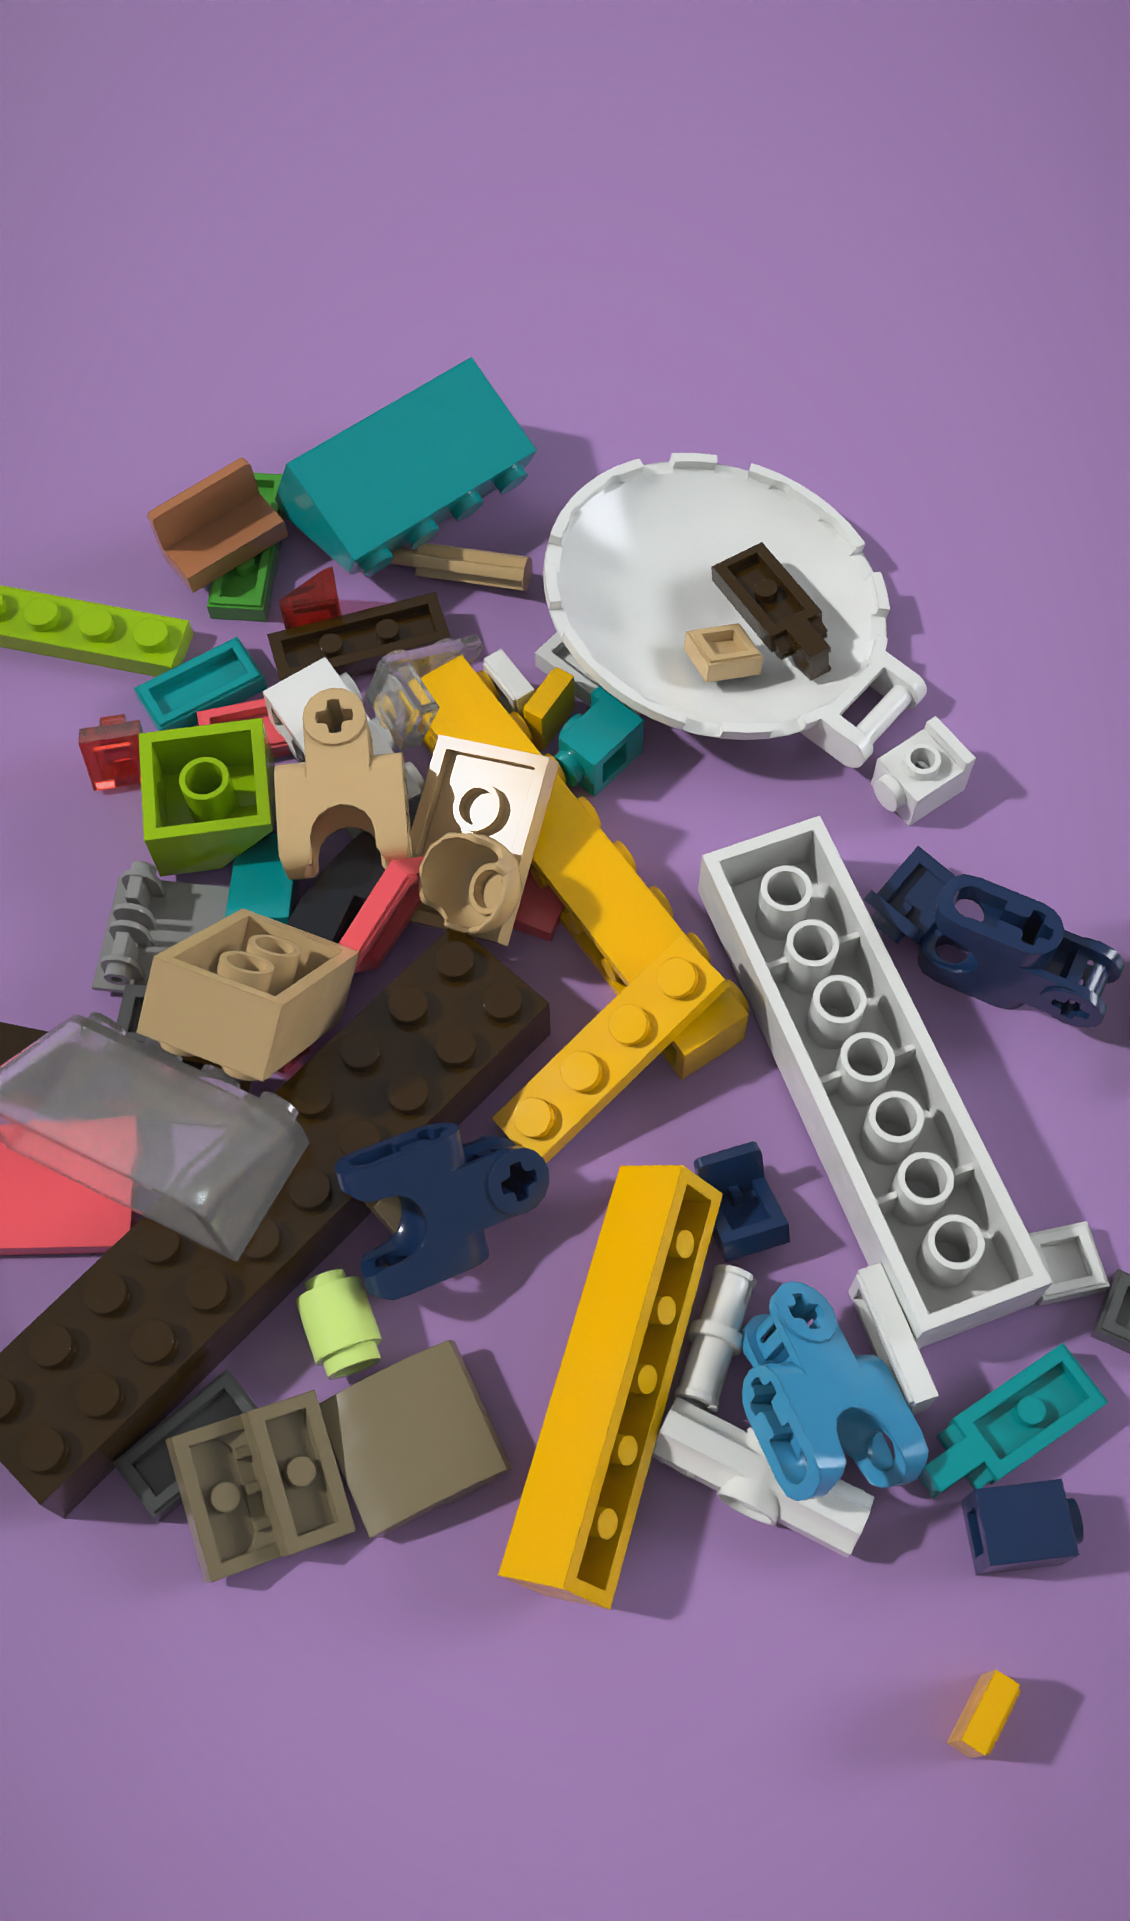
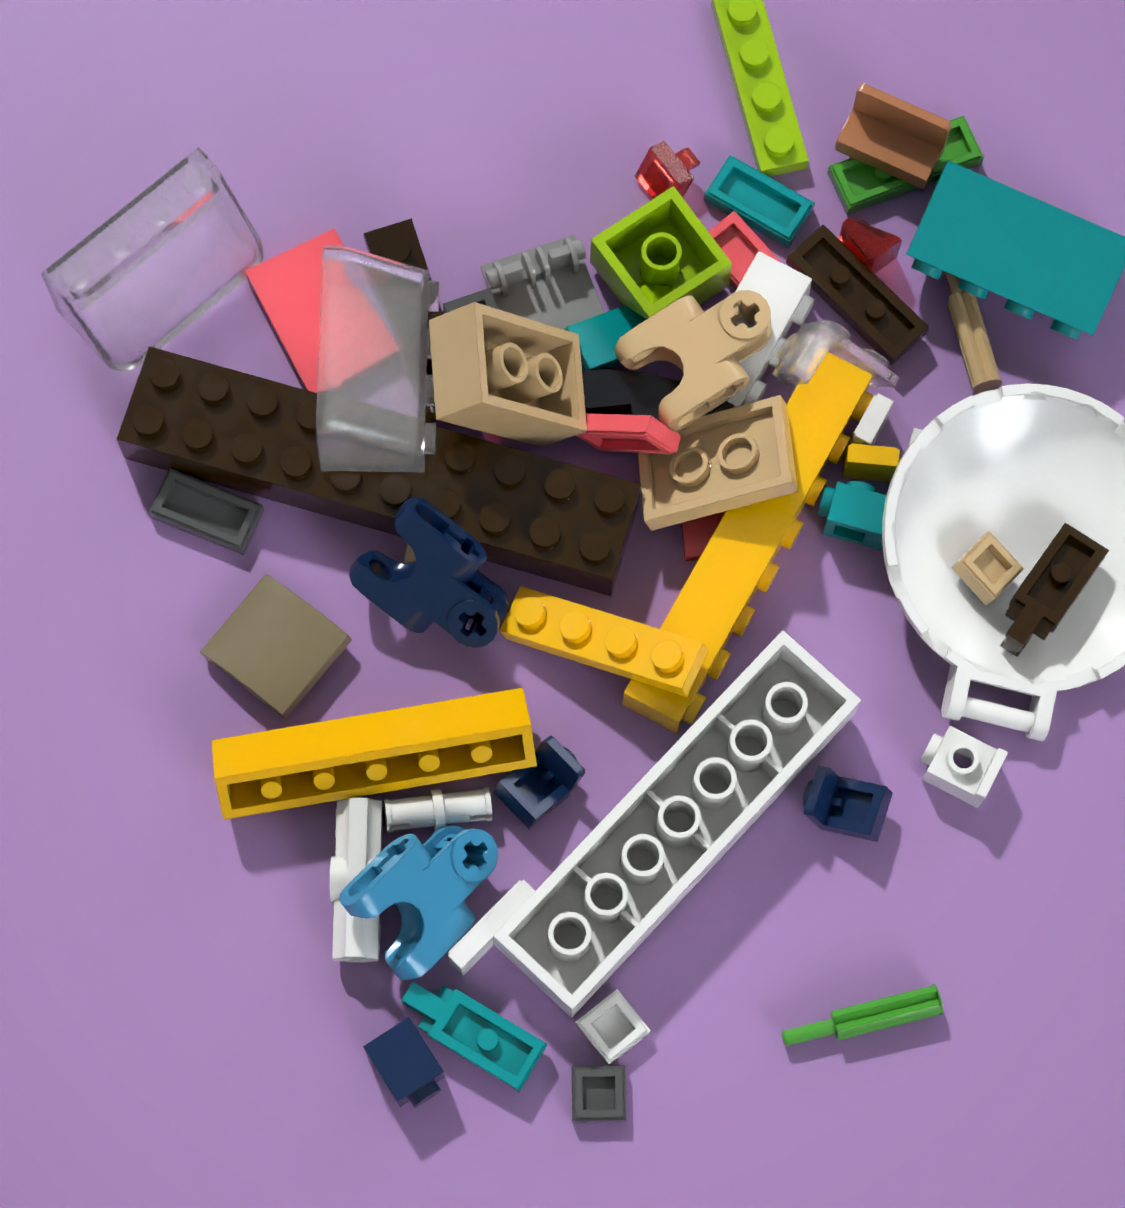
camera: 60 degrees right, 10 degrees up
(260, 1486) = (198, 566): dark tan slope -> none
(339, 1323) = (325, 559): yellowish green brick -> none
(470, 882) = (668, 478): tan hair -> none
(984, 1714) = (272, 1085): yellow tile -> none
(1018, 954) = (827, 929): dark blue piece -> none

